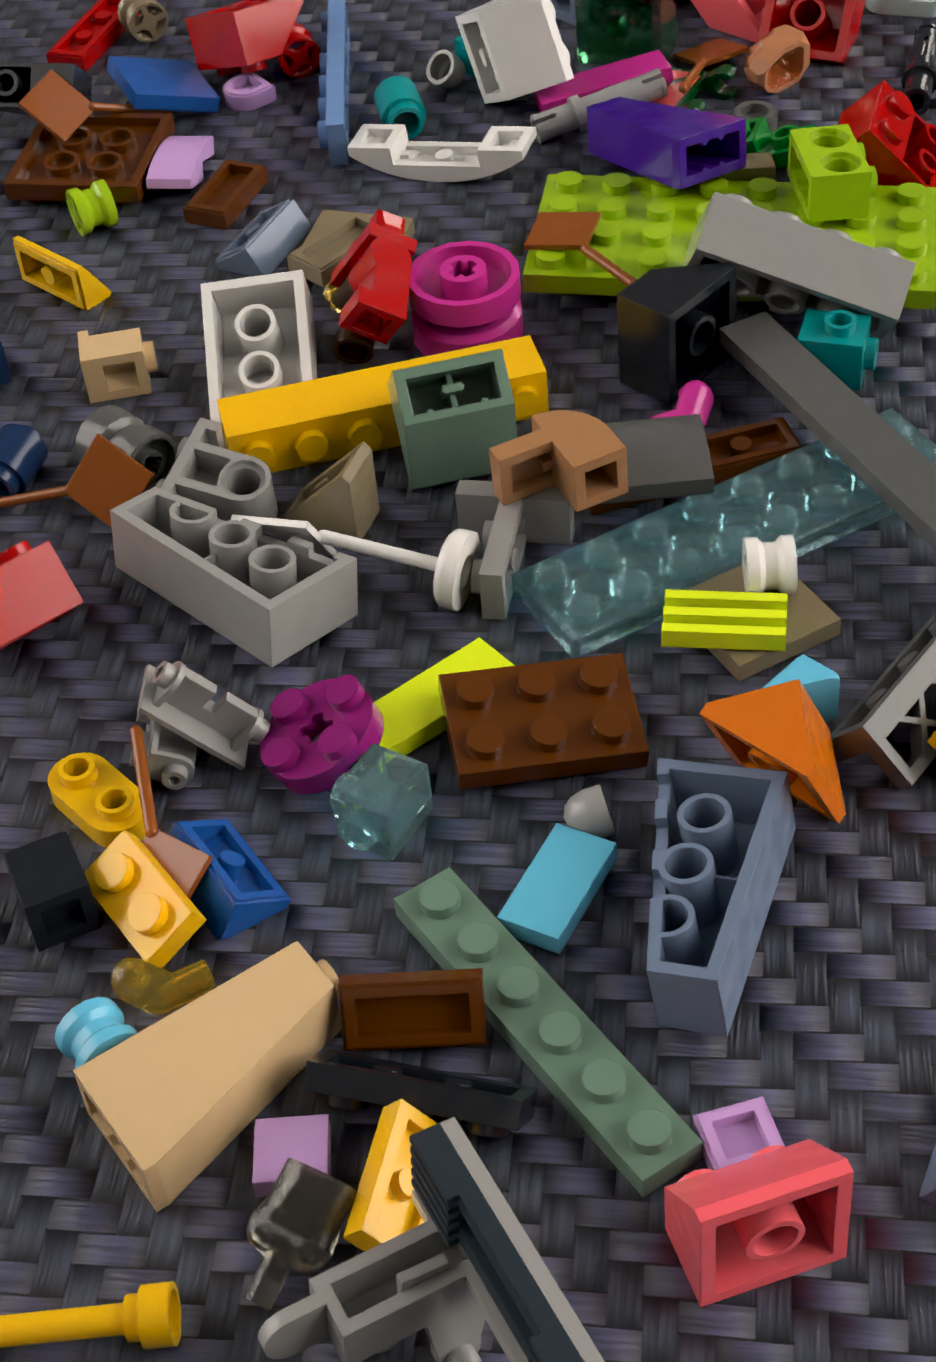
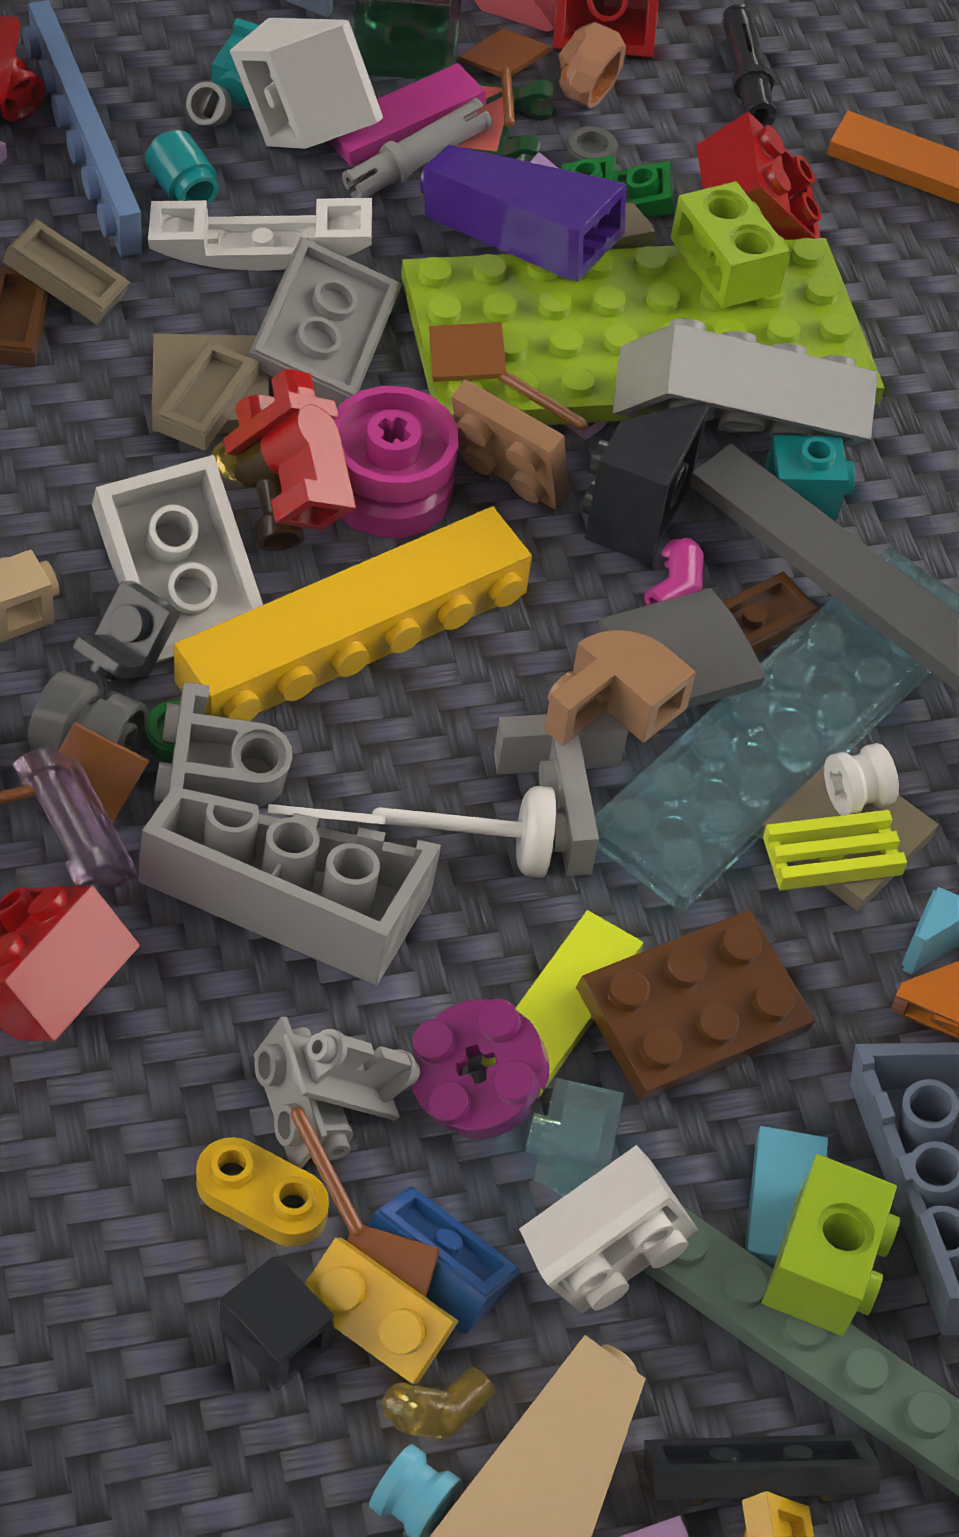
camera: 30 degrees left, 10 degrees up
(67, 498) = (76, 817): none -> plate
(193, 396) = (129, 634): none -> black bracket
(265, 240) = (95, 384): sand blue slope -> none
(274, 164) = (66, 271): none -> dark tan tile
(341, 497) = (351, 755): dark tan slope -> none
(359, 868) = (608, 1232): none -> white slope
(413, 1009) = (715, 1378): reddish brown tile -> none
(452, 416) = (461, 633): sand green slope -> none
(467, 203) = (325, 320): none -> light grey tile
(559, 914) = (810, 1274): none -> lime brick
(566, 295) = (510, 445): none -> medium nougat plate
(589, 812) = (788, 1106): light grey hinge -> none

